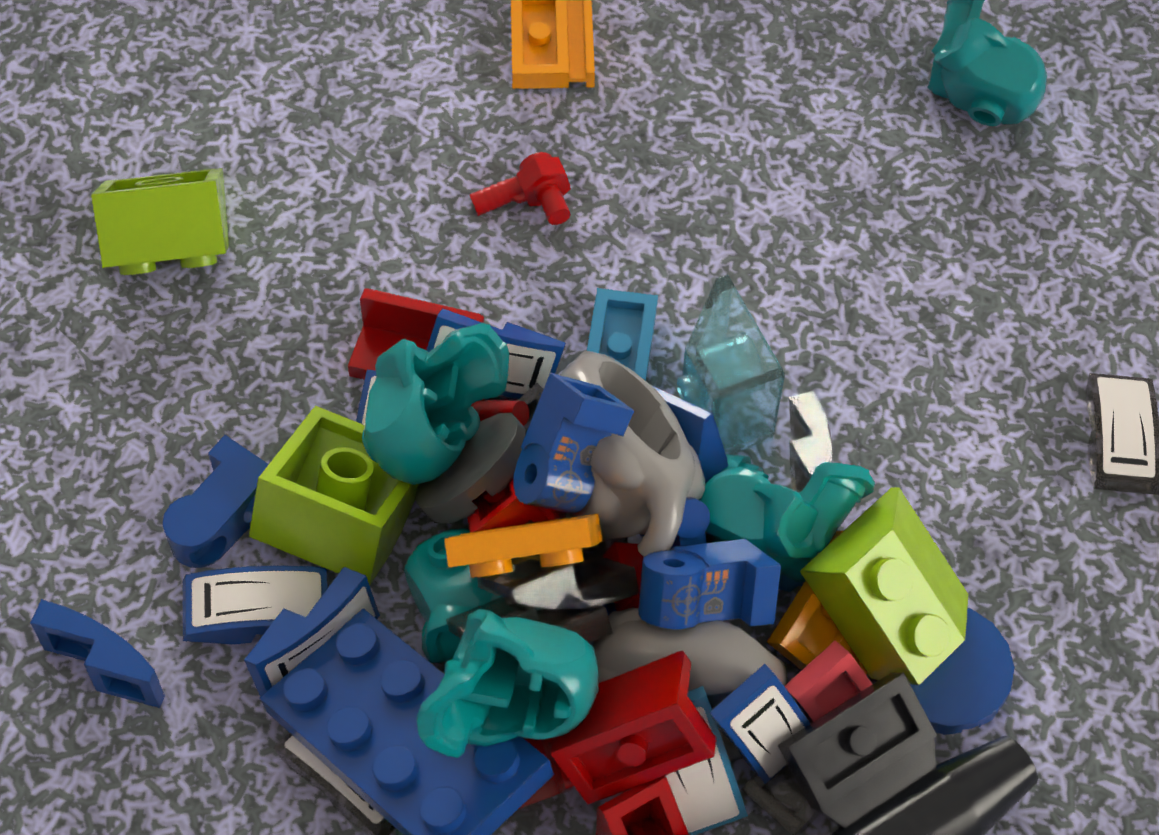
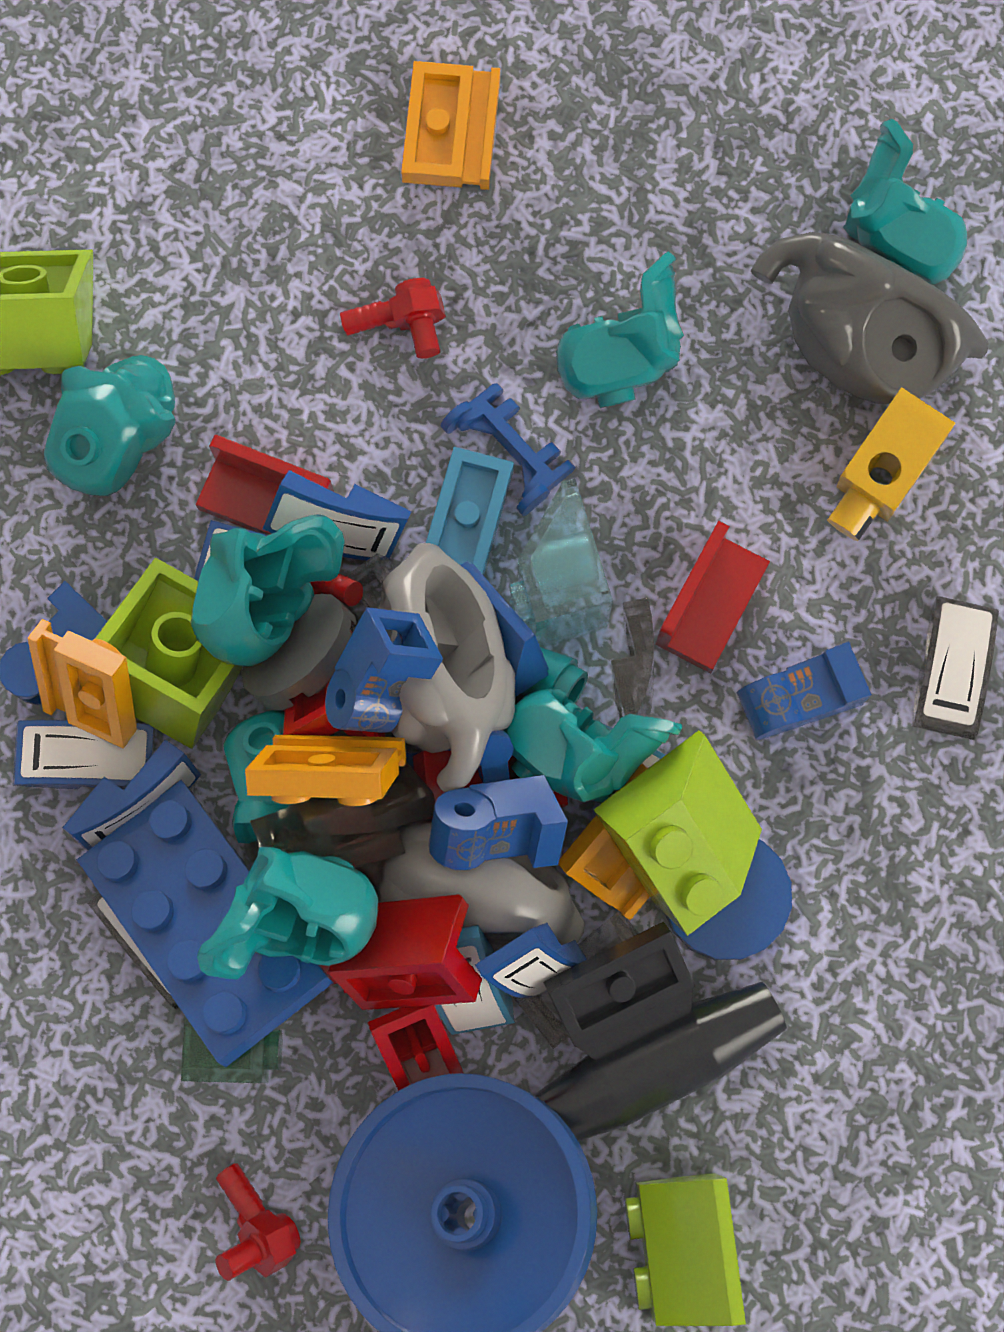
camera: 10 degrees right, 20 degrees up
(251, 301) = (108, 423): none -> teal head
(257, 511) = (84, 681): none -> light orange plate
(619, 265) = (482, 417): none -> blue piece
(747, 192) = (627, 353): none -> teal head
(827, 682) = (605, 920): coral plate -> none
(872, 399) = (711, 600): none -> red panel
(975, 143) = (870, 319): none -> dark grey piece
(984, 467) = (805, 692): none -> blue leg
(1020, 253) = (901, 444): none -> yellow torso

